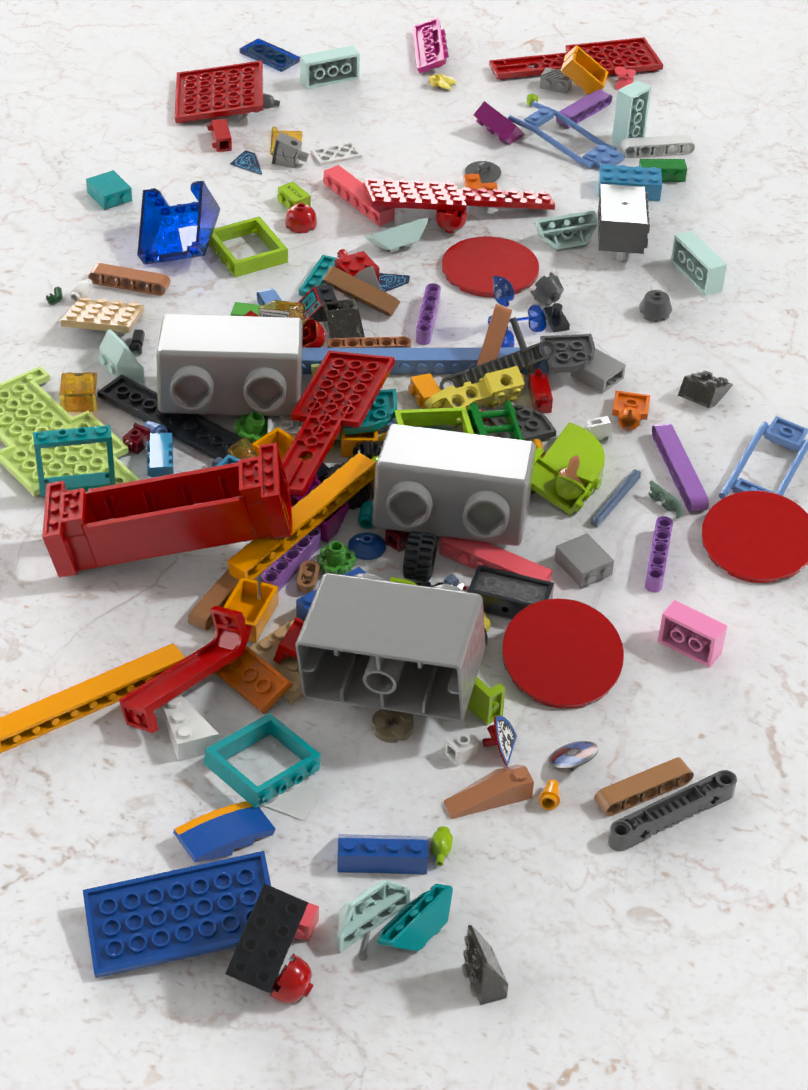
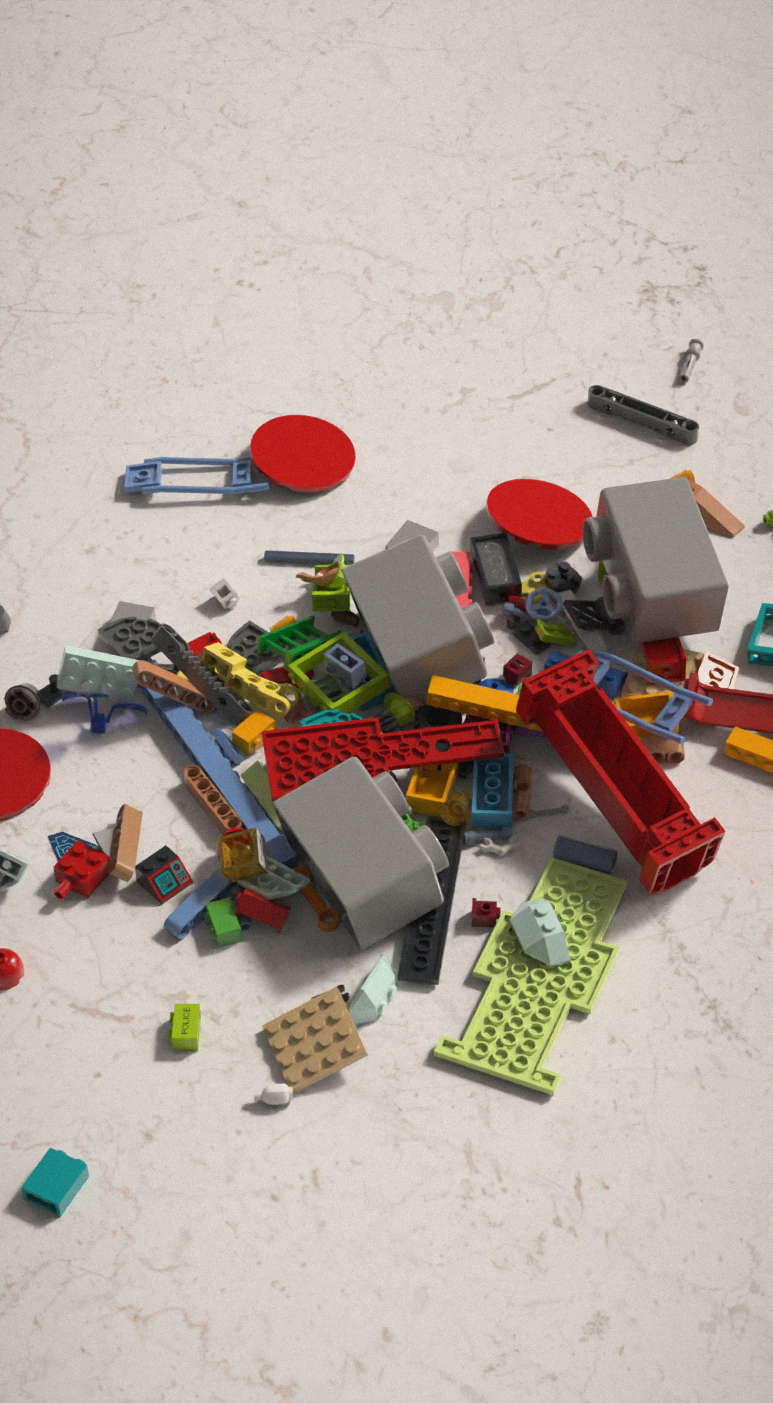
camera: 115 degrees left, 5 degrees up
(56, 297) = (298, 1115): dark green arm -> none
(69, 437) = (604, 929): teal window -> none
(79, 392) = (451, 994): clear yellow brick -> none
(85, 454) = (540, 932): none -> light aqua wedge
(129, 279) = (224, 1063): nougat beam -> none
(155, 427) = (460, 905): medium blue cone -> none
(160, 455) = (508, 869): dark azure wedge -> none
(176, 230) = (111, 1048): clear blue windscreen -> none
(178, 272) = (186, 1027): none -> lime brick
(277, 255) = (47, 993): lime window -> none
(308, 570) = (671, 713): none -> medium blue plate
(317, 274) = (108, 902): teal plate -> none
(342, 319) = (187, 836): clear smoke slope -> none
(375, 561) = (514, 671): none -> dark red brick
(416, 370) = (224, 742): none -> medium blue plate
(420, 556) = (506, 629): black tyre -> none
(427, 416) = (345, 665): none -> sand blue brick
(428, 314) = (119, 782): medium lavender beam -> none
(538, 313) = (97, 672): none -> light aqua brick
(573, 755) = (635, 471): shield -> none
(578, 441) = (277, 595): lime brick -> none
(630, 408) = (175, 585): orange plate -> none
(643, 786) = (632, 436): medium nougat beam -> none
(658, 554) = (368, 505): medium lavender beam -> none
(668, 501) = (293, 522): sand green piece -> none
(680, 467) = (238, 529): medium lavender beam -> none
(692, 633) = (458, 450): bright pink brick -> none
(704, 388) = (108, 547): clear smoke slope -> none
(753, 905) = (692, 355): none -> light grey pin

